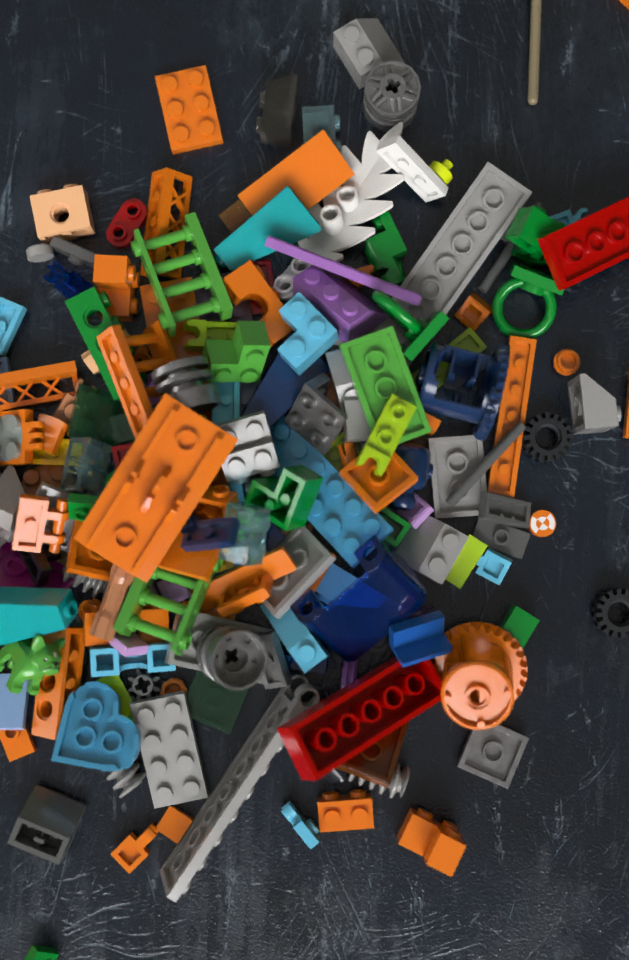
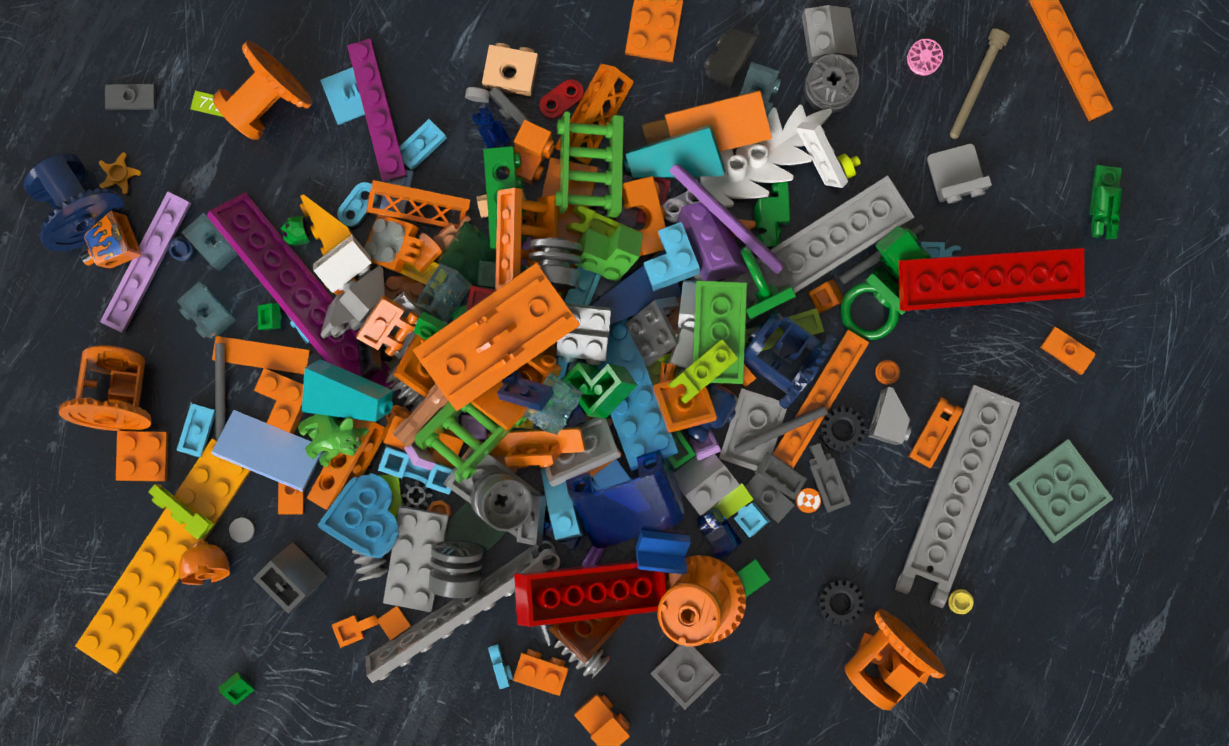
camera: 25 degrees right, 0 degrees up
(214, 746) = (455, 569): none -> dark grey wheel
(466, 594) = (718, 532): none -> clear blue leg
(471, 35) = (924, 57): none -> bright pink wheel
(553, 137) = (957, 174): none -> light grey bracket
(553, 494) = (828, 479): none -> dark grey hinge

